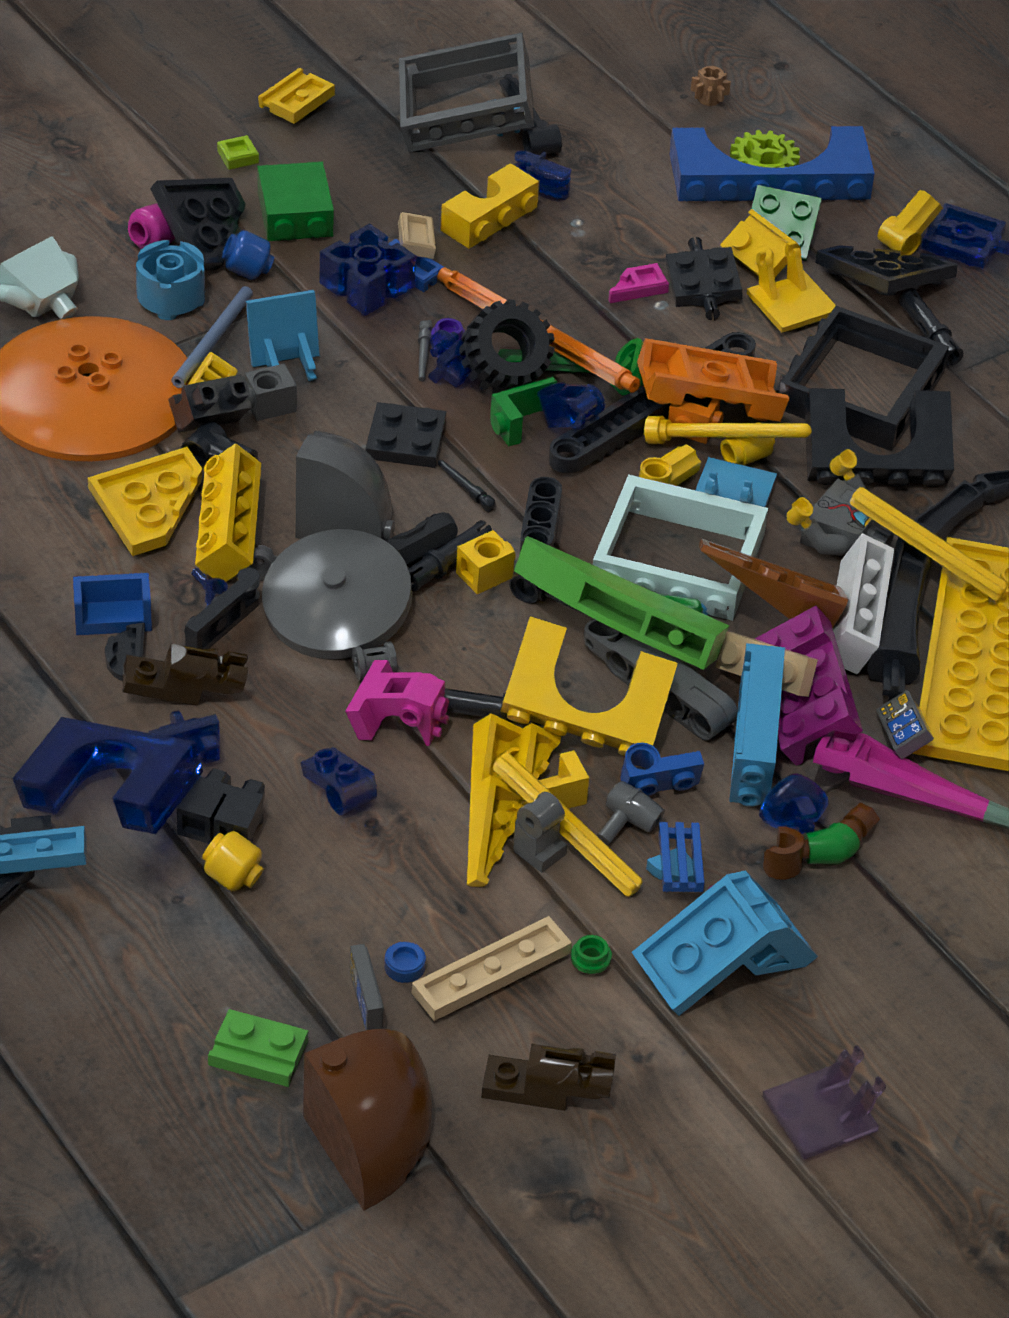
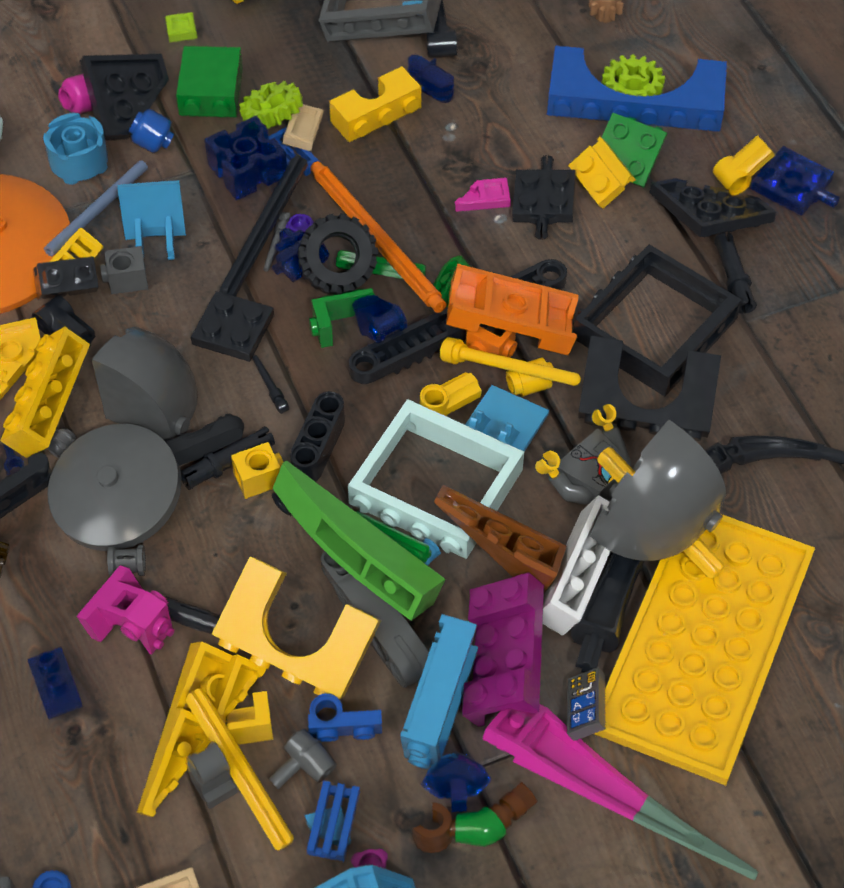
camera: 15 degrees right, 10 degrees up
(380, 210) = (272, 103): none -> lime gear
(409, 333) = (264, 226): none -> black axle
(791, 300) = (616, 229): yellow plate -> none
(797, 668) = (490, 635): tan plate -> none
(938, 517) = (666, 500): none -> dark grey brick

